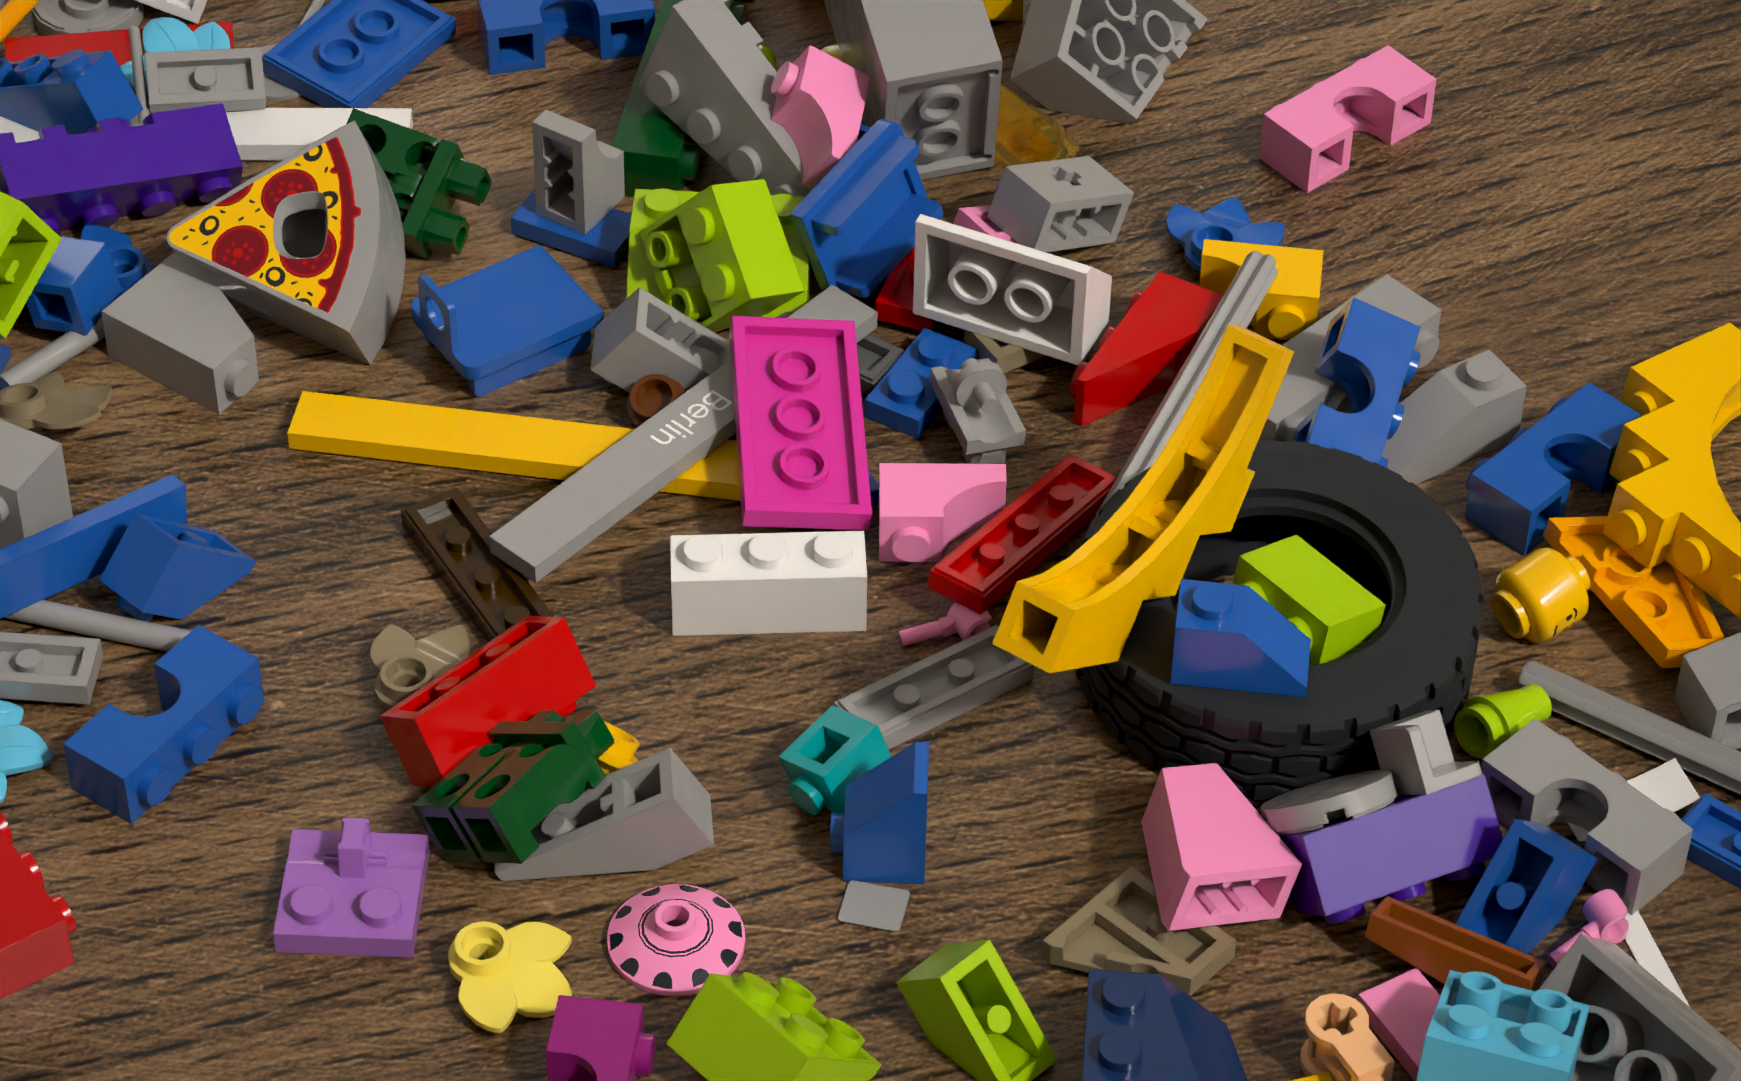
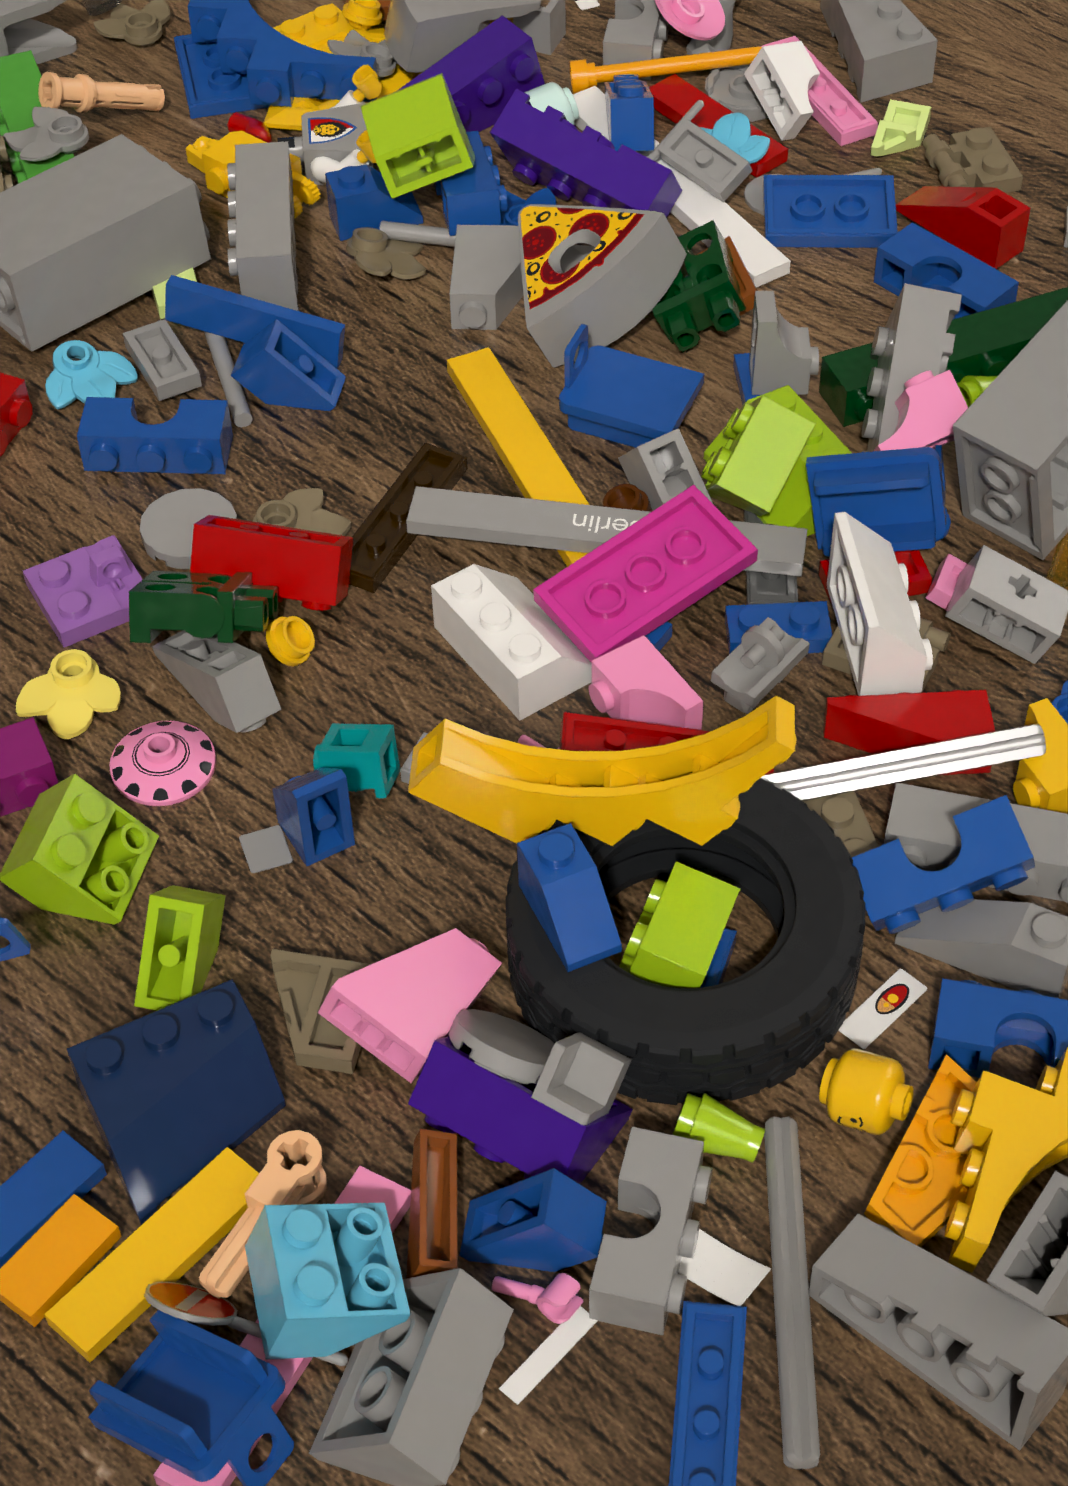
camera: 60 degrees right, 5 degrees up
(335, 764) = (170, 522): none -> light grey tile

